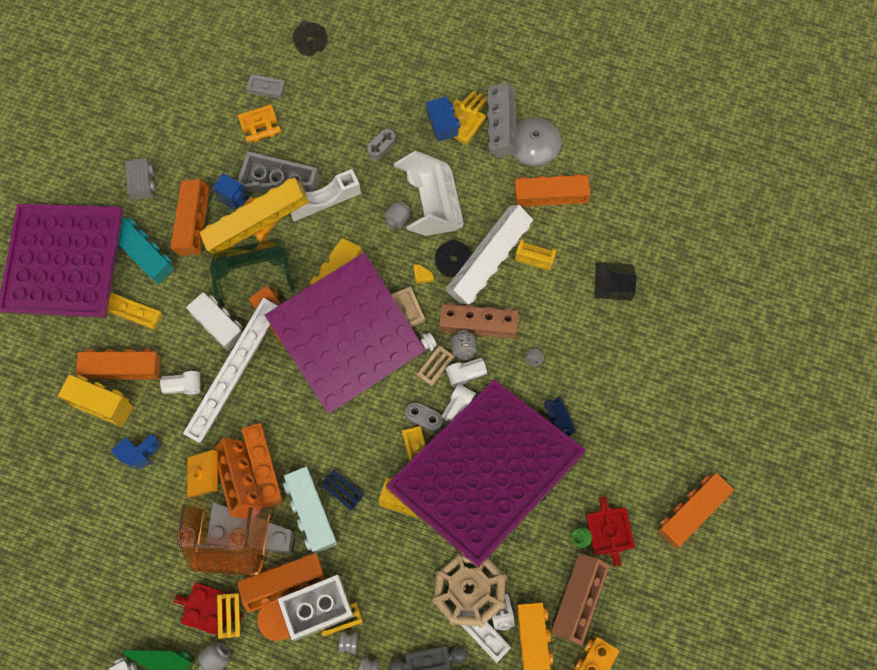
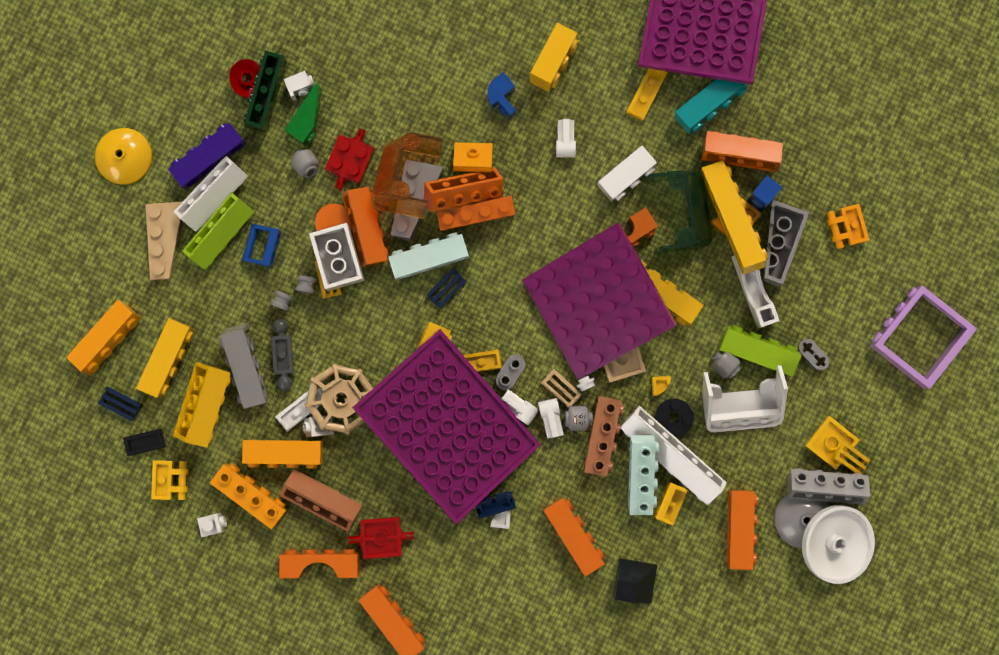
camera: 95 degrees right, 15 degrees up
(119, 365) = (588, 78): orange brick -> none
(139, 179) = (791, 100): light grey brick -> none
(229, 634) = (325, 177): yellow tile -> none
(230, 373) = (572, 188): white plate -> none
(265, 86) = (892, 235): light grey plate -> none
(306, 30) = (961, 282): clear smoke plate -> none
(372, 35) = (946, 357): none -> lavender window
(381, 187) = (759, 350): none -> lime brick
(442, 118) = (833, 421): blue brick -> none
(512, 278) = (641, 474): none -> light aqua brick
(534, 357) = (559, 487): light grey plate -> none
(553, 107) = (838, 544): none -> white dish
(575, 411) = (501, 520): none -> white tile
(580, 339) = (573, 536): none -> orange brick
(581, 537) = (378, 509): bright green plate -> none
(651, 621) = (343, 563): none -> orange arch

